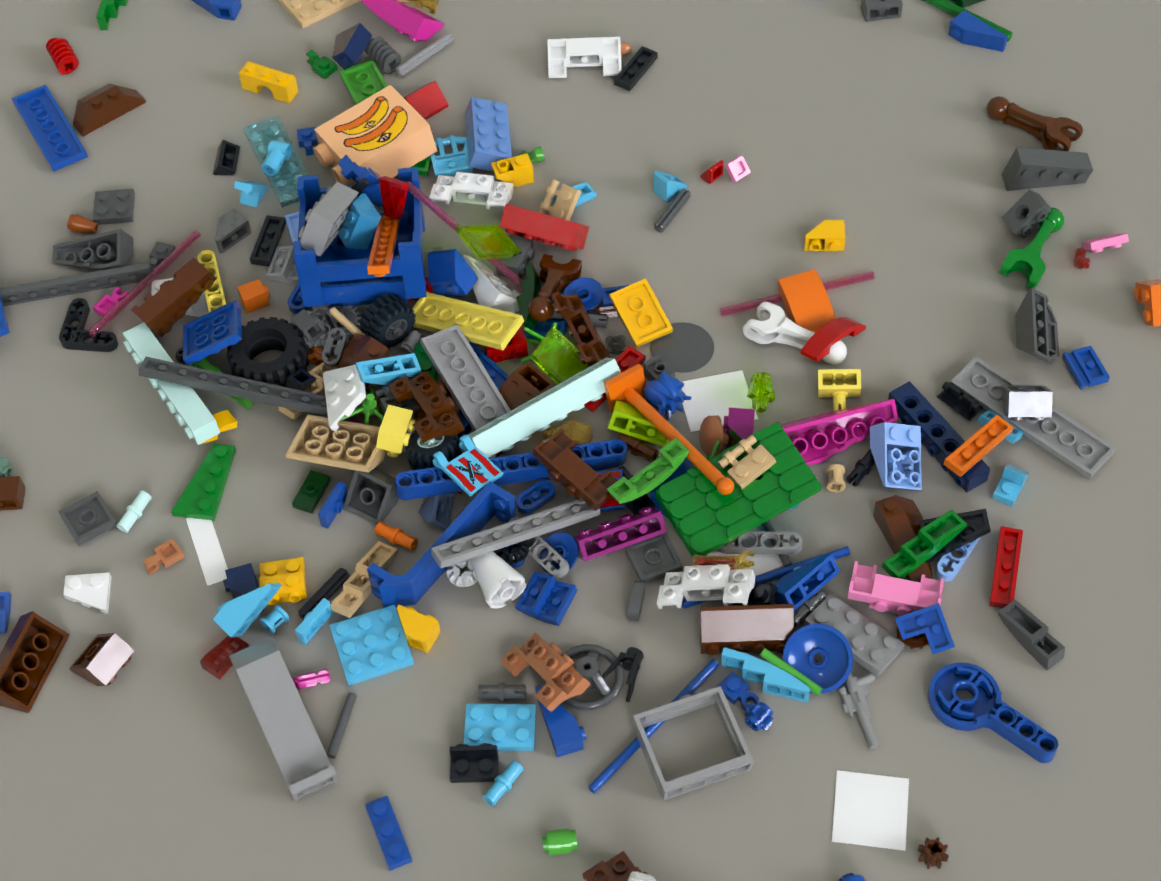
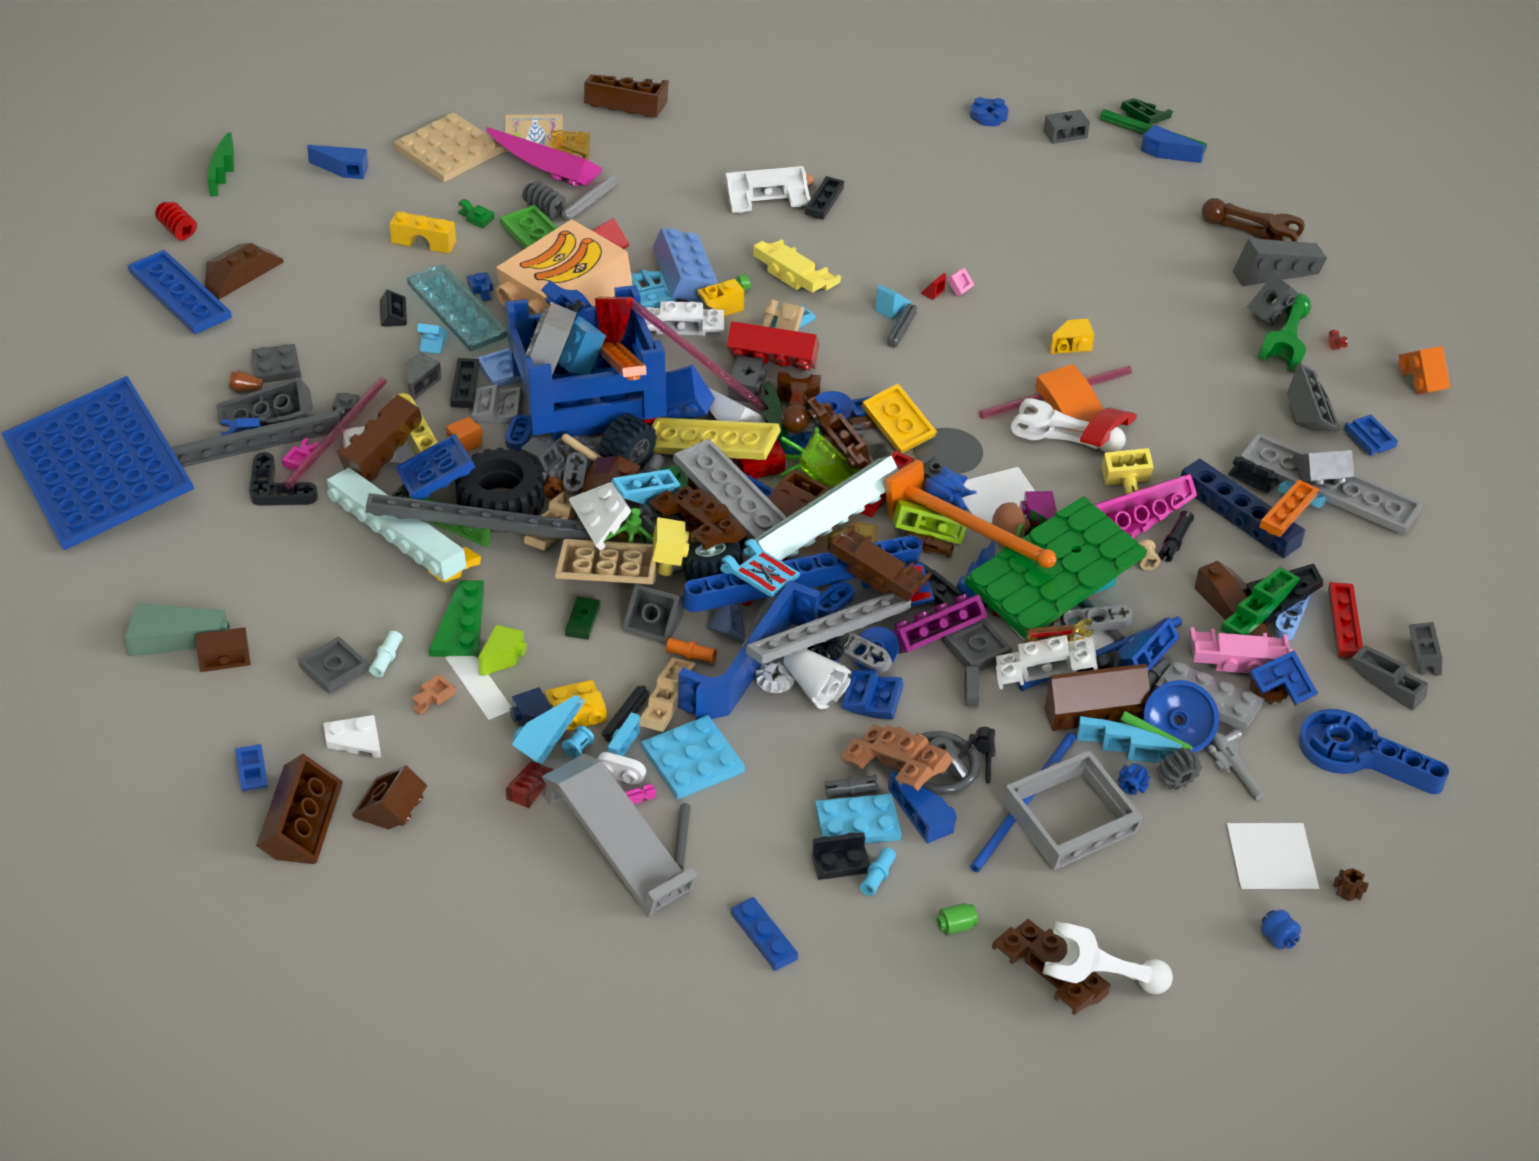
camera: 15 degrees left, 10 degrees down
(69, 270) = (240, 424): none -> blue plate
(231, 519) = (501, 650): none -> lime slope
(277, 154) = (455, 298): medium azure piece -> none
(297, 648) = (623, 768): none -> white plate
(299, 379) = (544, 507): black slope -> none
(333, 504) = (613, 626): blue plate -> none
(350, 45) = (510, 190): dark blue slope -> none
(419, 629) = (742, 733): yellow slope -> none
(487, 241) = (720, 358): clear neon green piece -> none
(586, 143) = (793, 267): none -> light yellow bracket
(651, 476) = (977, 543): bright green slope -> none
(737, 689) = (1106, 759): blue plate -> none
(751, 466) = (1067, 539): tan plate -> none
(761, 391) = (1047, 478): clear neon green rock -> none
(802, 712) = (1179, 768): none -> dark grey gear
(897, 454) = (1206, 524): light blue slope -> none
(1010, 485) = (1326, 546): medium azure slope -> none
(1074, 606) = (1426, 647): none -> dark grey hinge
(1113, 241) = (1363, 321): bright pink plate -> none

